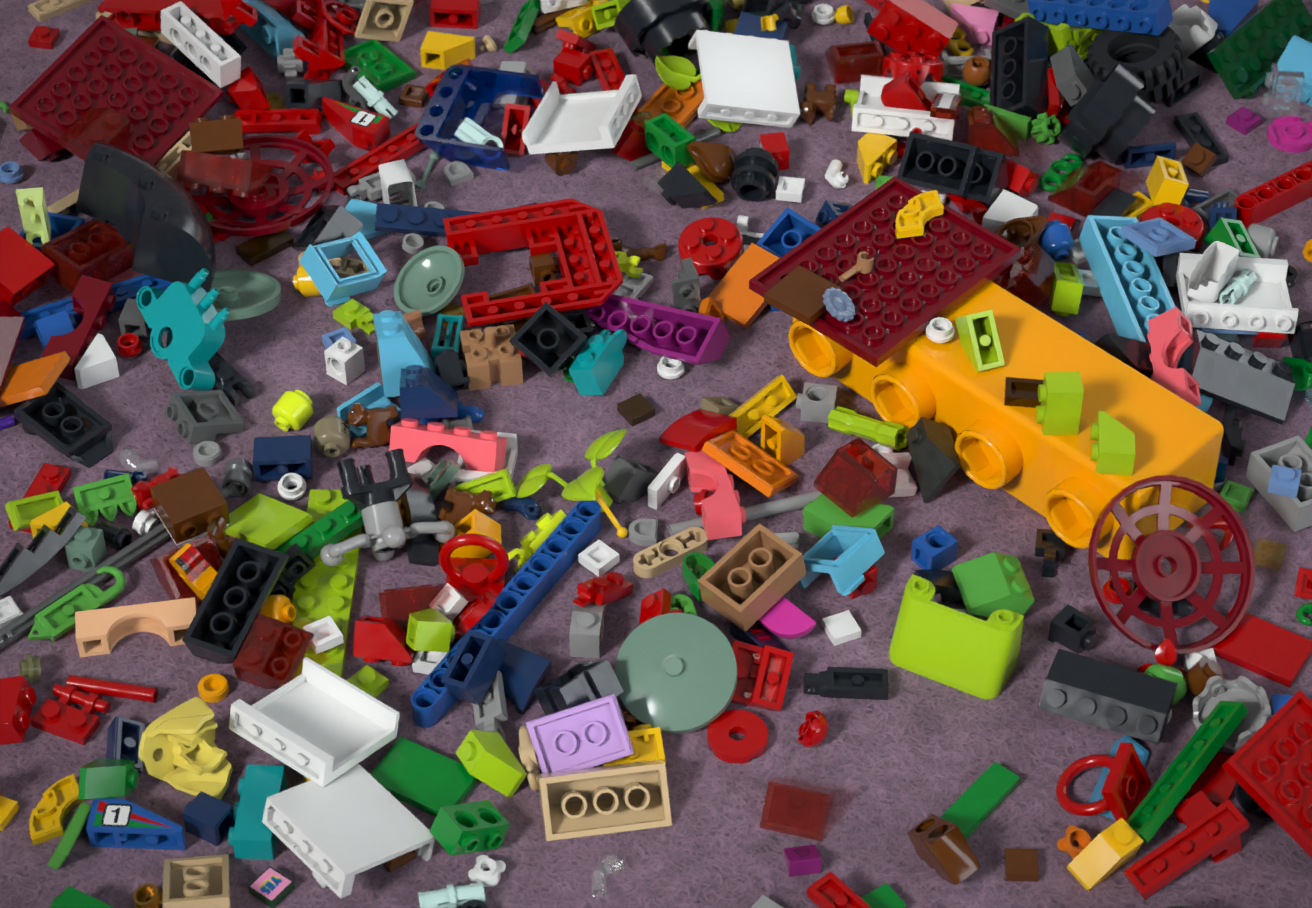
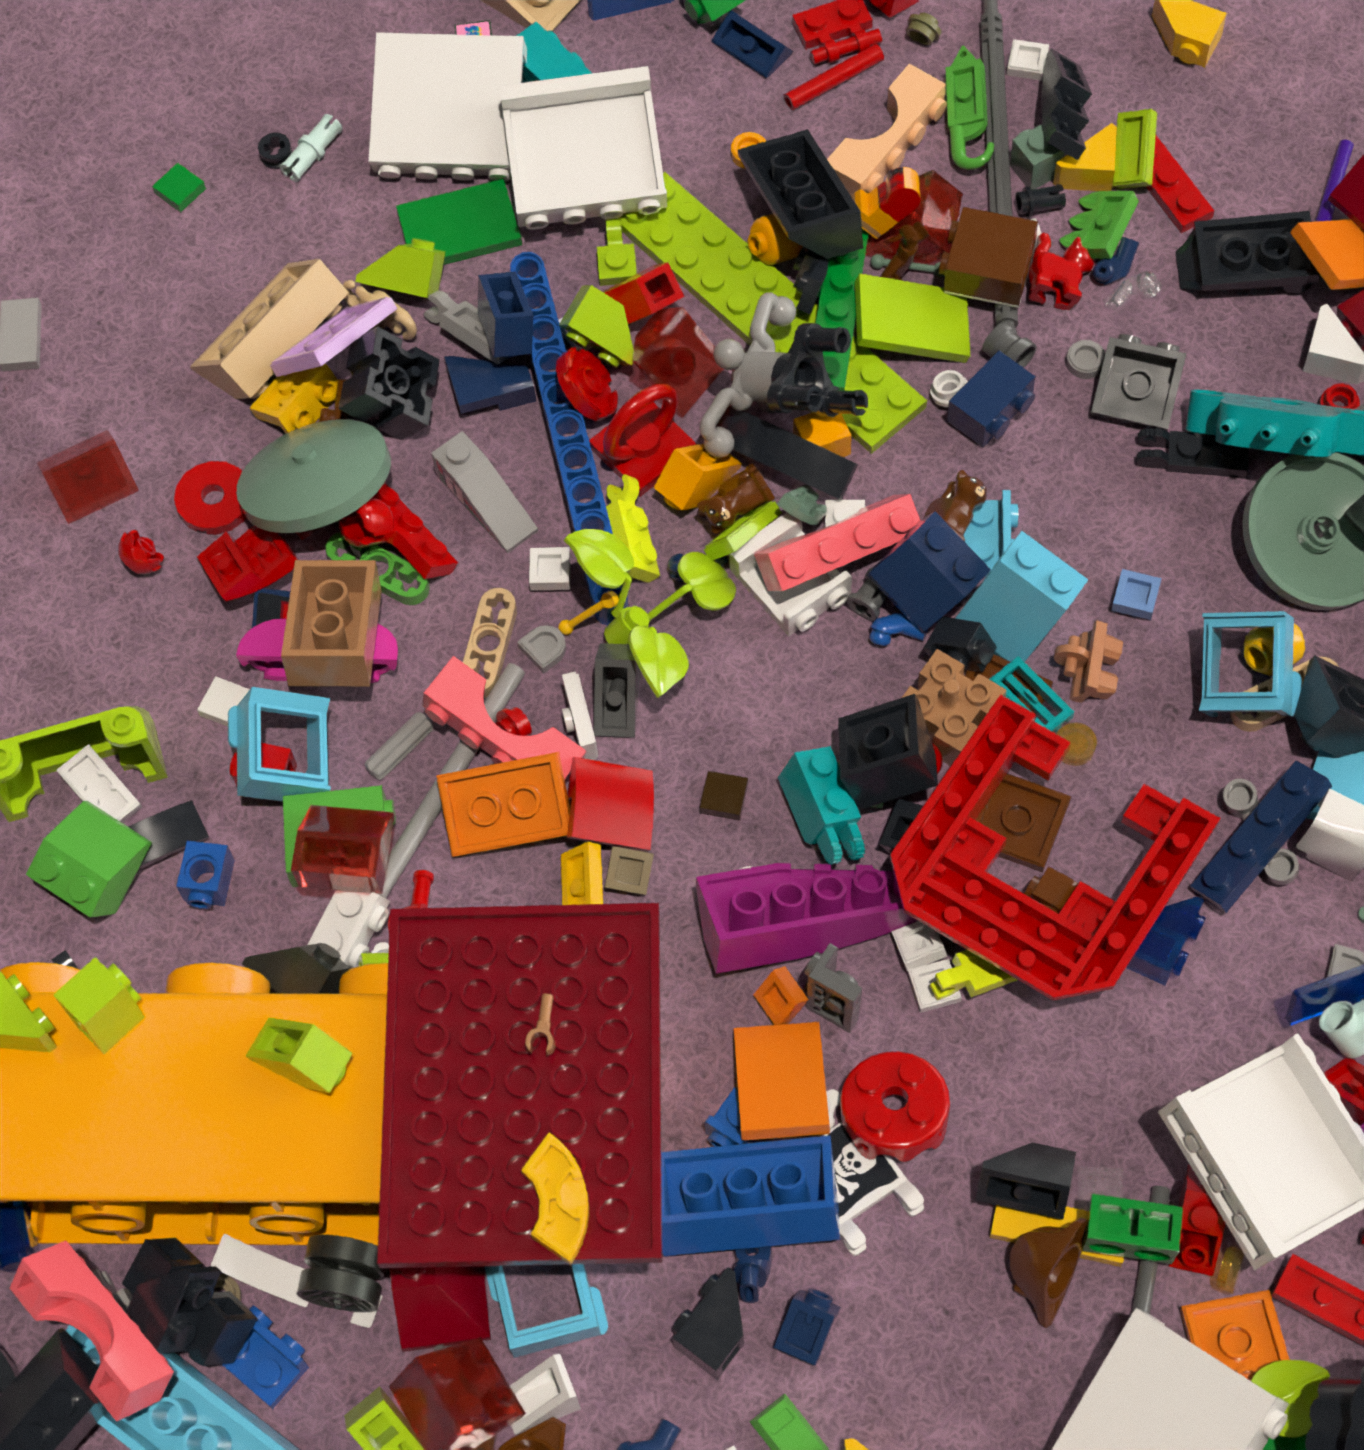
camera: 140 degrees right, 20 degrees up
(186, 750) = (679, 54): light yellow piece -> none
(208, 818) = (593, 36): dark blue brick -> none
(271, 653) = (717, 192): clear red slope -> none
(292, 410) = (1063, 465): neon yellow head -> none
(325, 634) = (695, 246): white plate -> none
(331, 436) = (984, 461): dark tan head -> none
(344, 360) = (1096, 562): white brick -> none
(353, 315) = (1175, 649): lime plate -> none
(429, 280) = (1137, 742): sand green dish -> none
(449, 602) = (626, 383): white plate -> none
(469, 827) = (356, 191): green brick -> none
(488, 878) = (310, 198): white plate -> none
(603, 589) = (495, 522): red plate -> none
(608, 865) = (203, 271): clear arm -> none
(657, 252) = (989, 1024): reddish brown arm -> none
(693, 568) = (418, 626): rock -> none
(754, 174) = (983, 1296): black piece -> none
(777, 146) = (1006, 1370): red brick -> none
(781, 440) = (502, 866): light orange slope -> none
(790, 189) = (918, 1322): white plate -> none
(800, 295) = (562, 924): reddish brown tile -> none
(802, 860) = (33, 425): magenta slope -> none
(834, 175) = (894, 1410): white arm -> none
(839, 304) = (499, 934): sand blue piece -> none
(848, 683) = (152, 637): black hinge -> none
(940, 330) = (360, 1025): white plate -> none
(1022, 392) = (171, 1036): dark brown tile -> none

